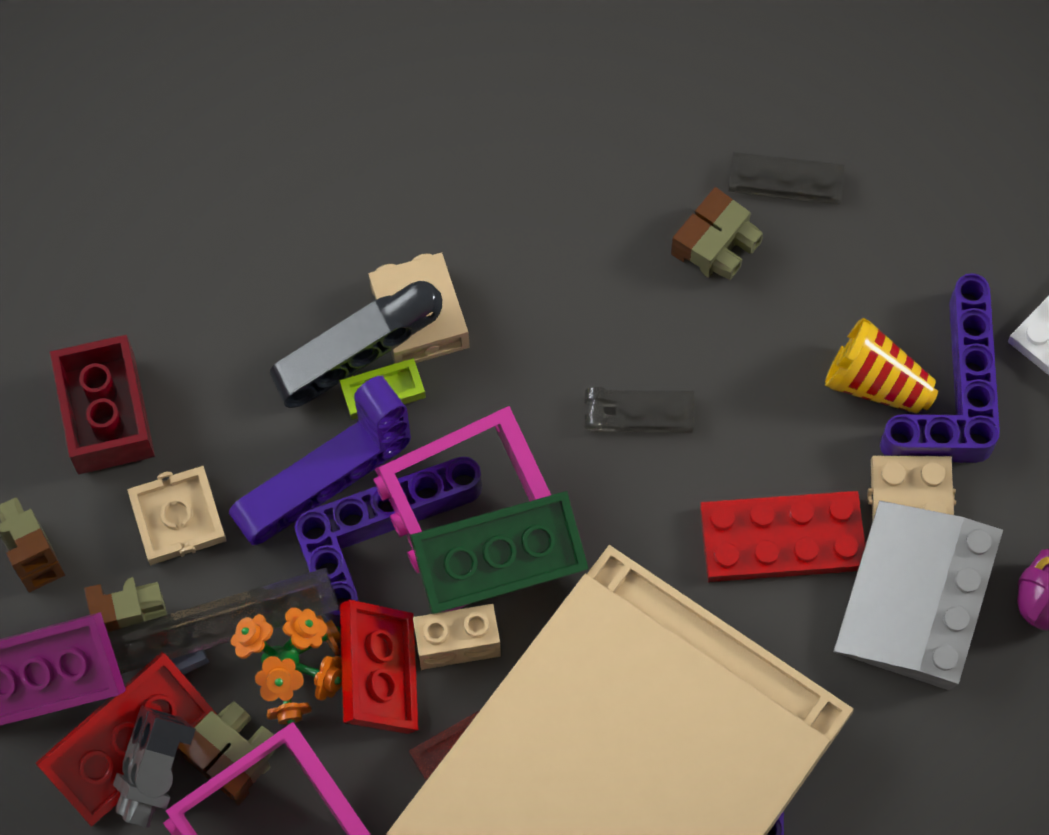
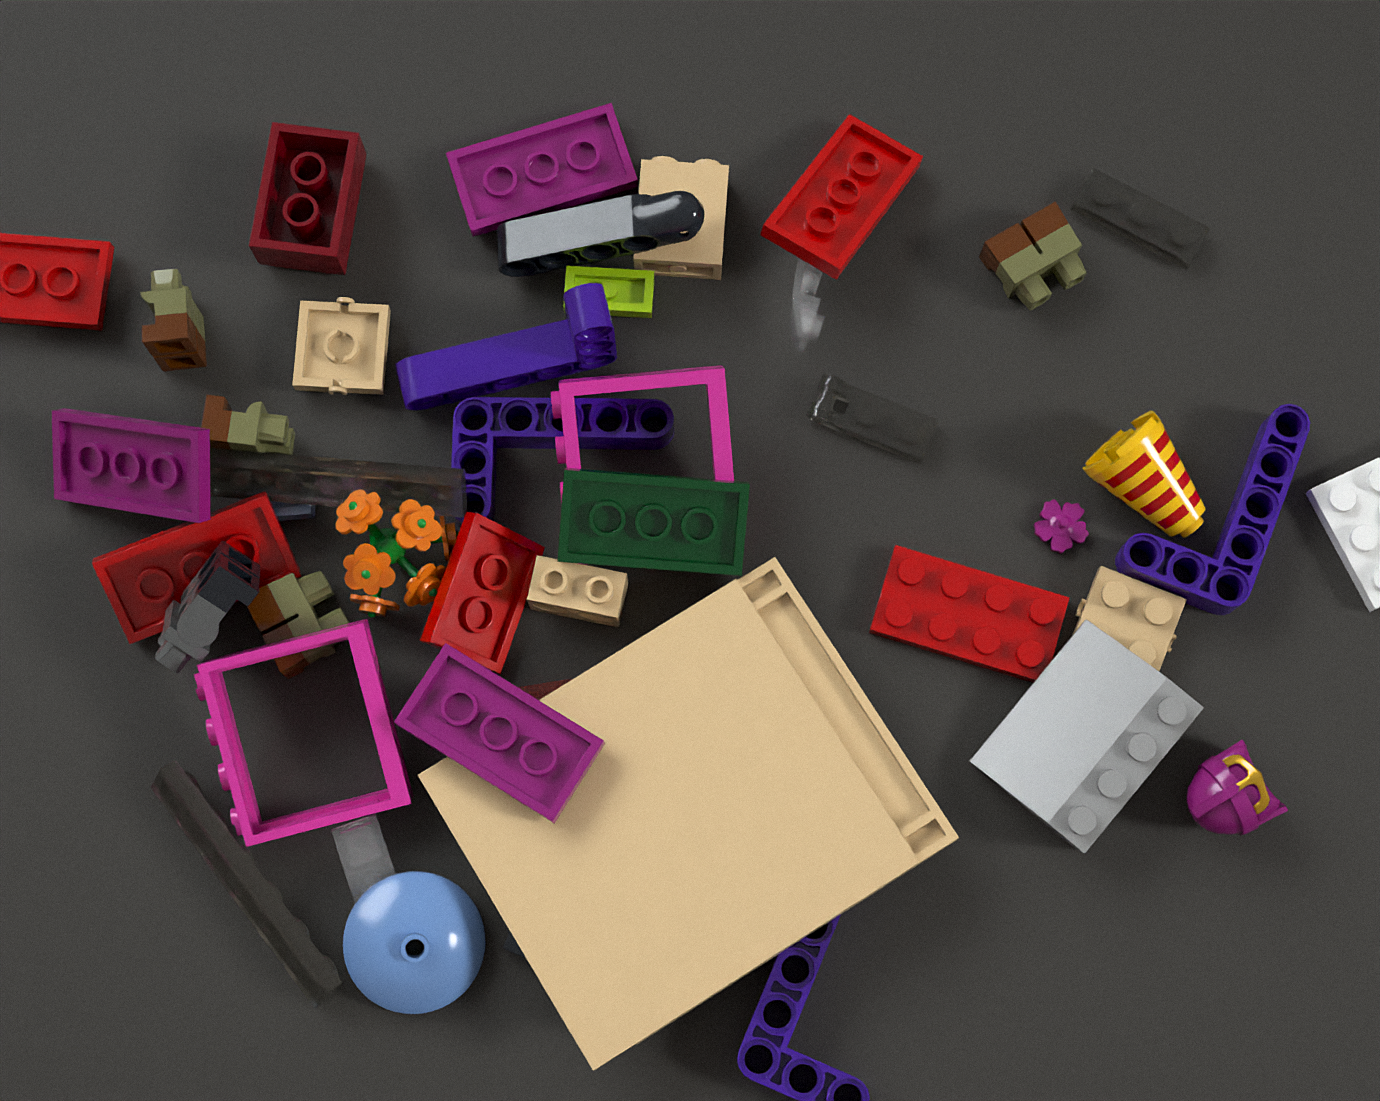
camera: 20 degrees right, 10 degrees up
(286, 312) = (542, 169): none -> magenta plate
(442, 770) = (499, 733): none -> magenta plate
(543, 244) = (841, 196): none -> red plate
(547, 340) = (805, 319): none -> clear slope
(826, 438) = (1061, 525): none -> magenta plant

